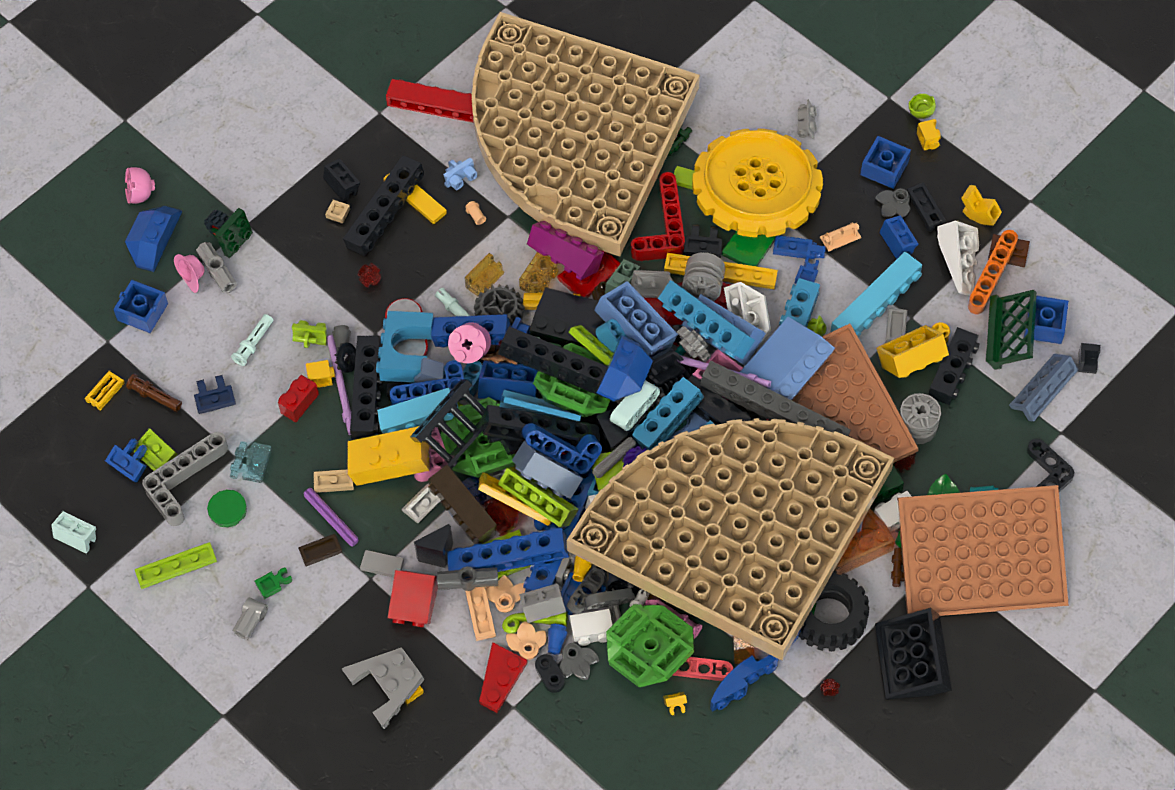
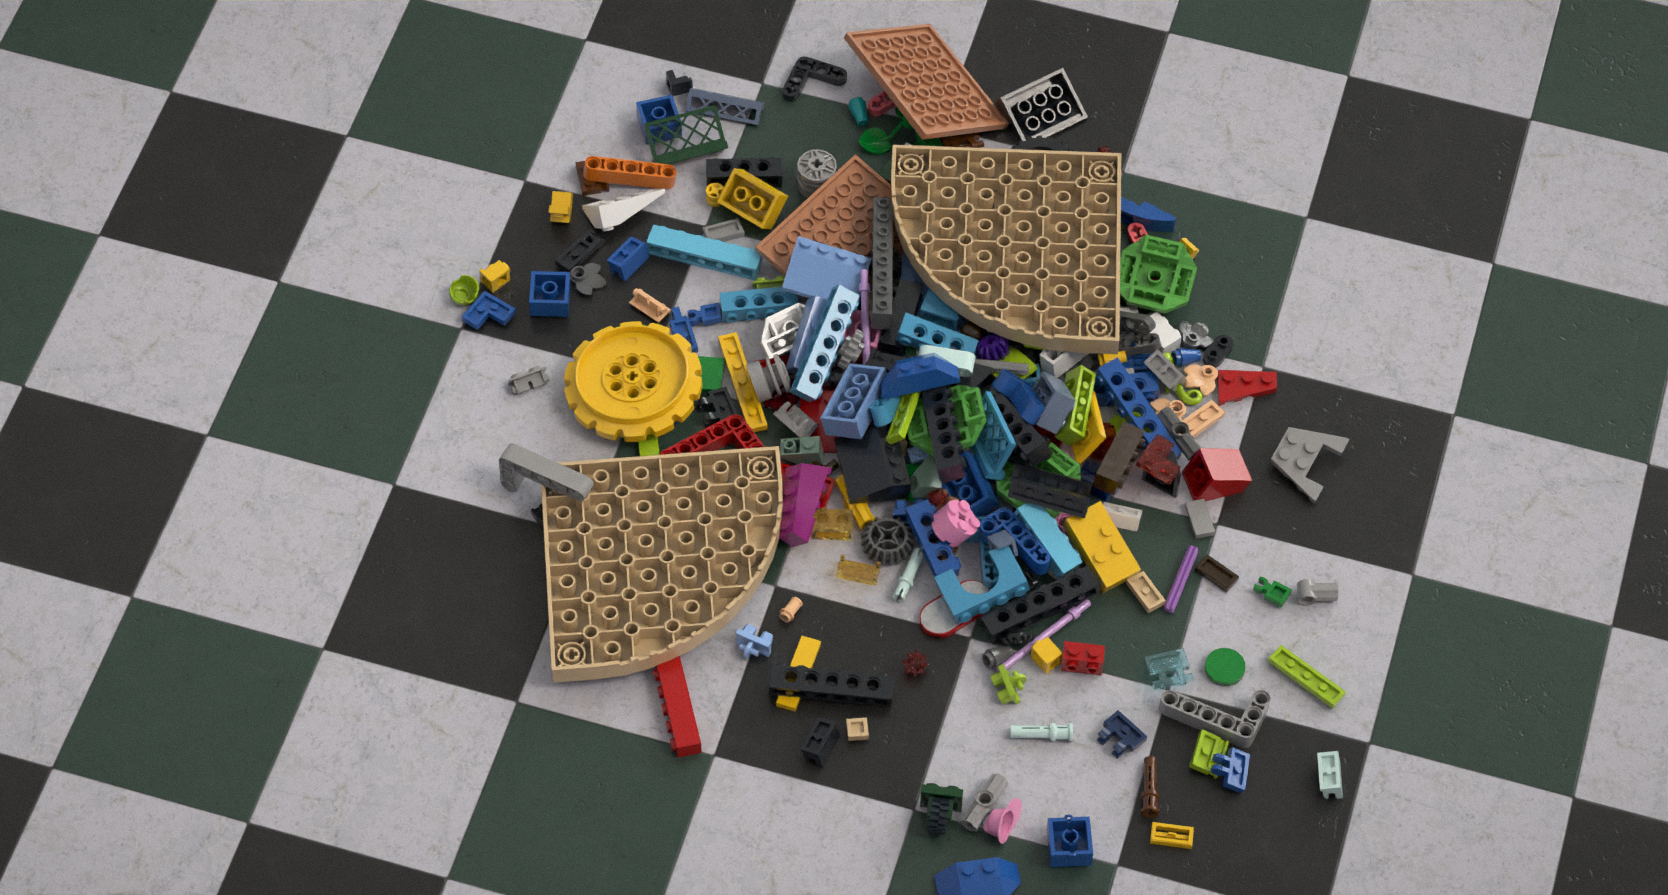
camera: 120 degrees left, 5 degrees down
(438, 526) = (1154, 460): none -> clear red plate
(704, 59) = (520, 463): none -> light grey beam
(897, 117) = (486, 307): none -> blue plate

